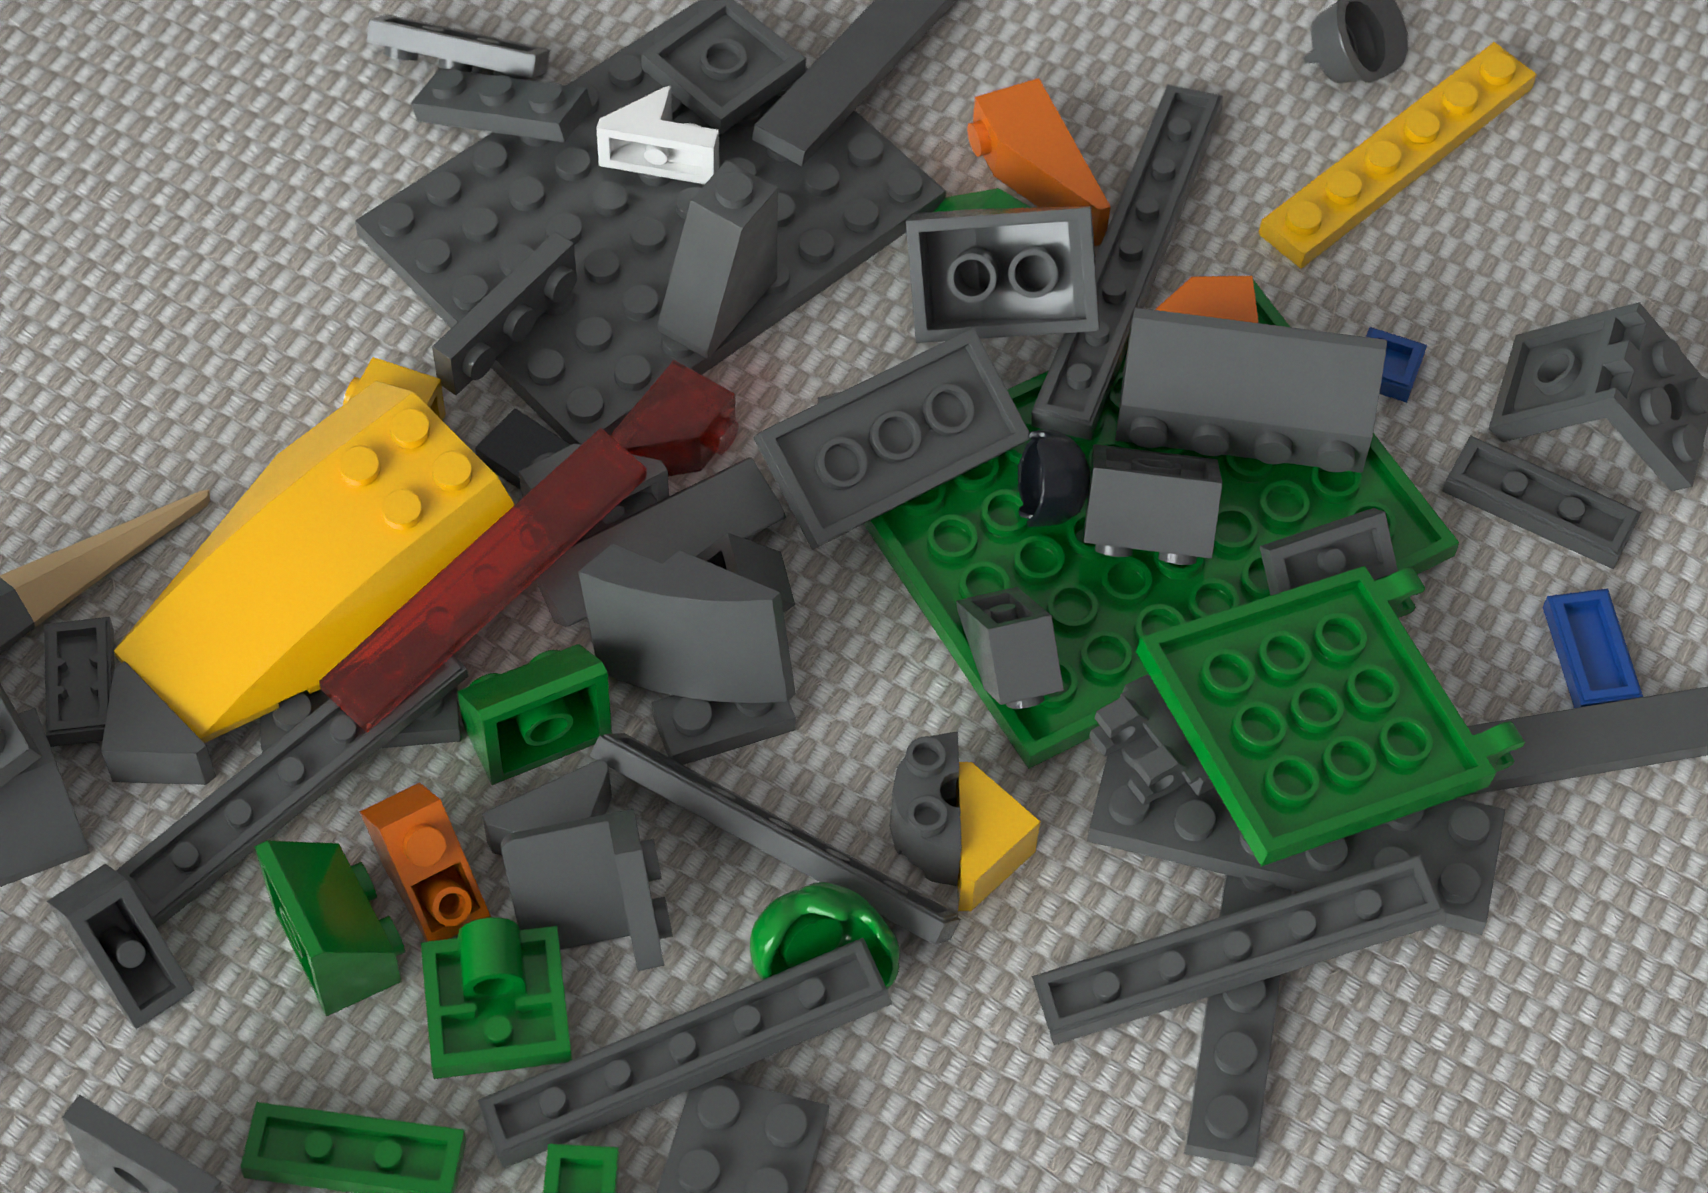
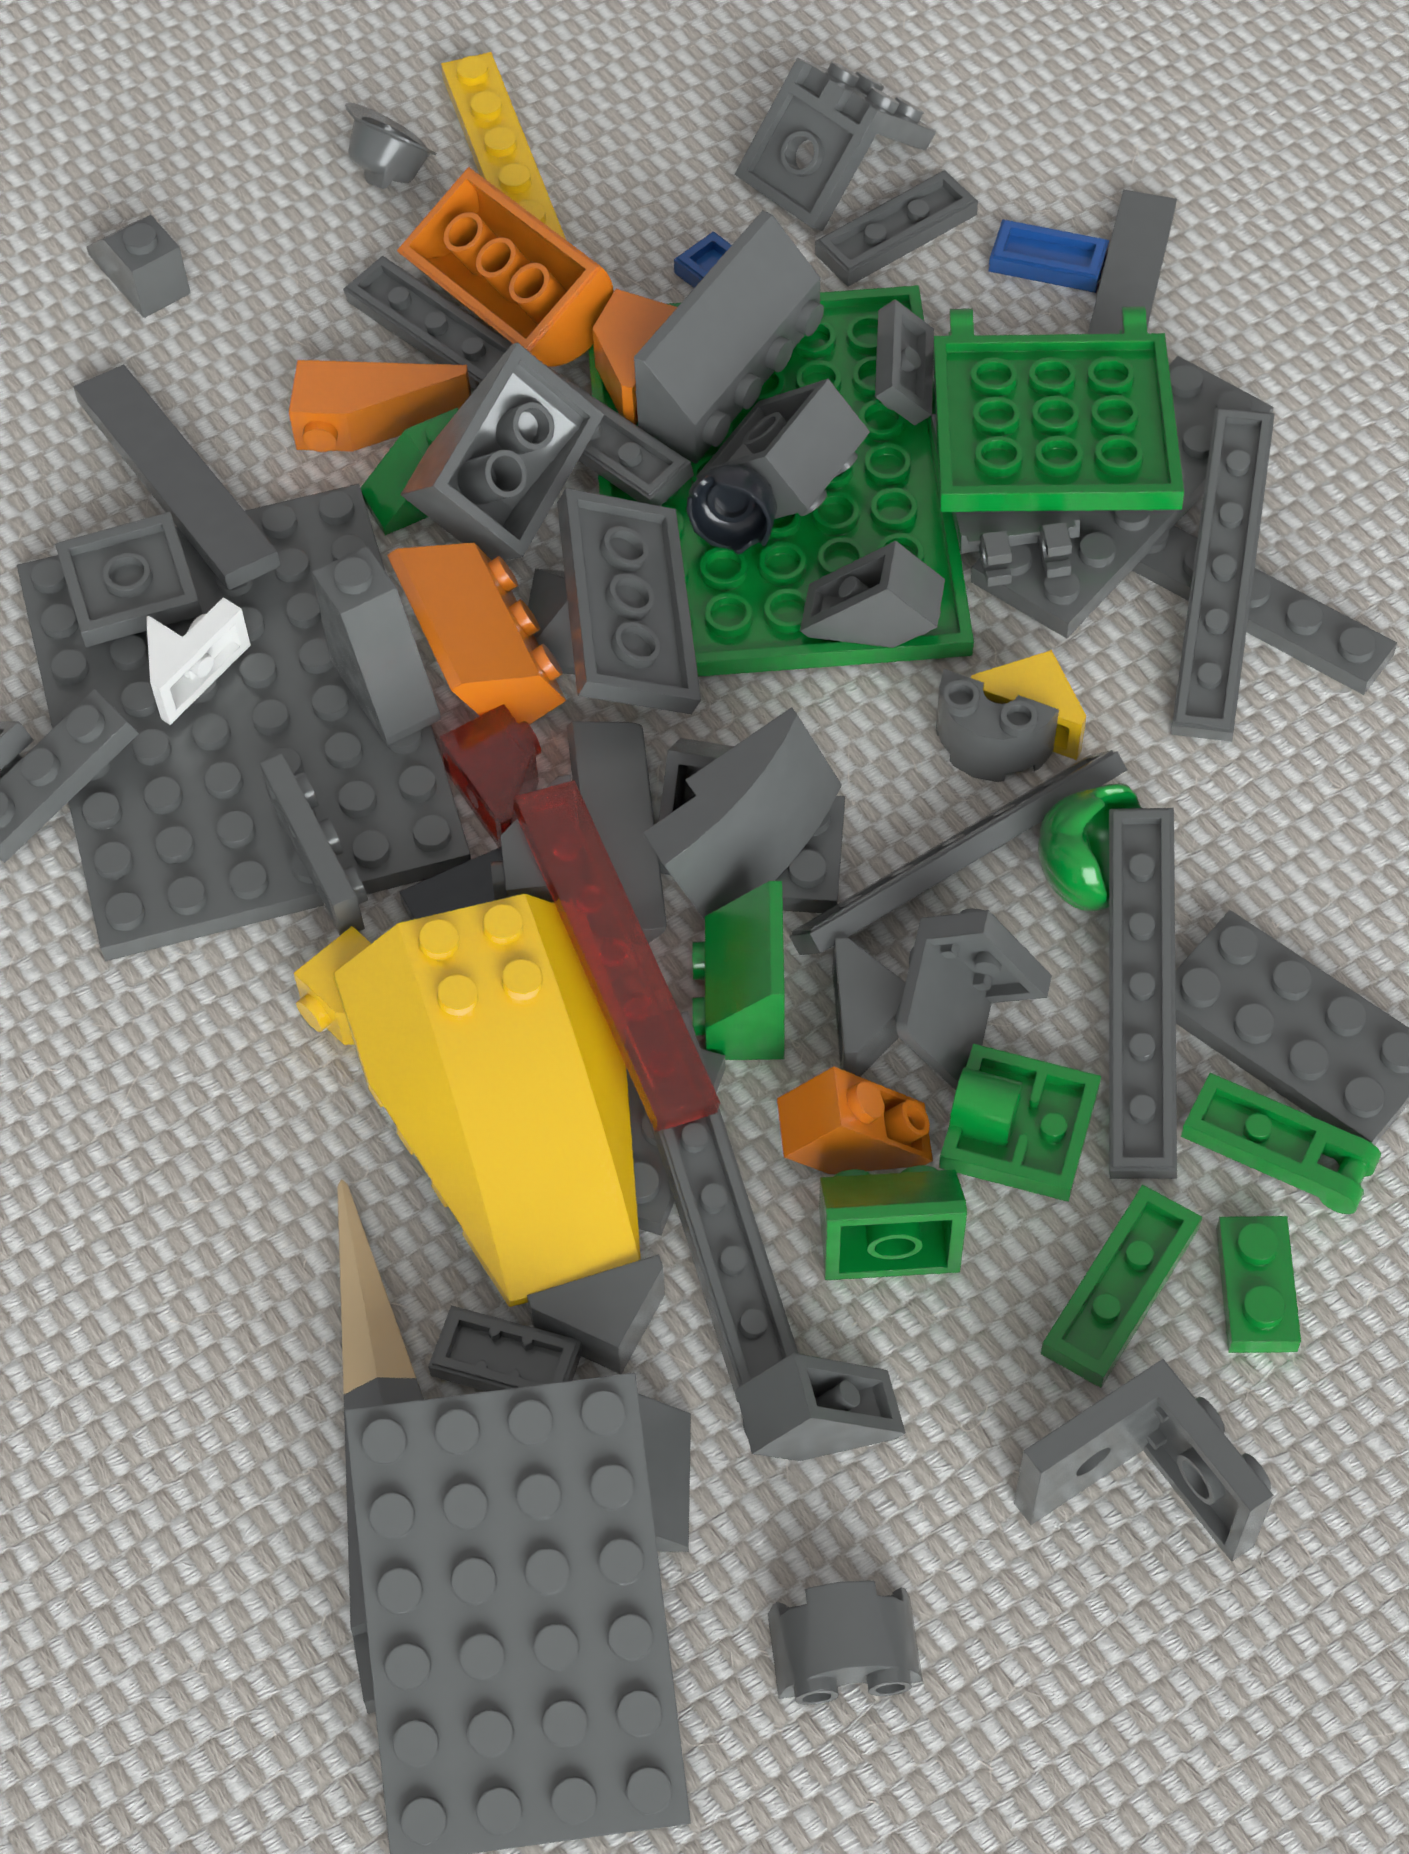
camera: 60 degrees left, 0 degrees up
(801, 332) = (479, 629): none -> orange slope
(1238, 188) = (510, 270): none -> orange brick

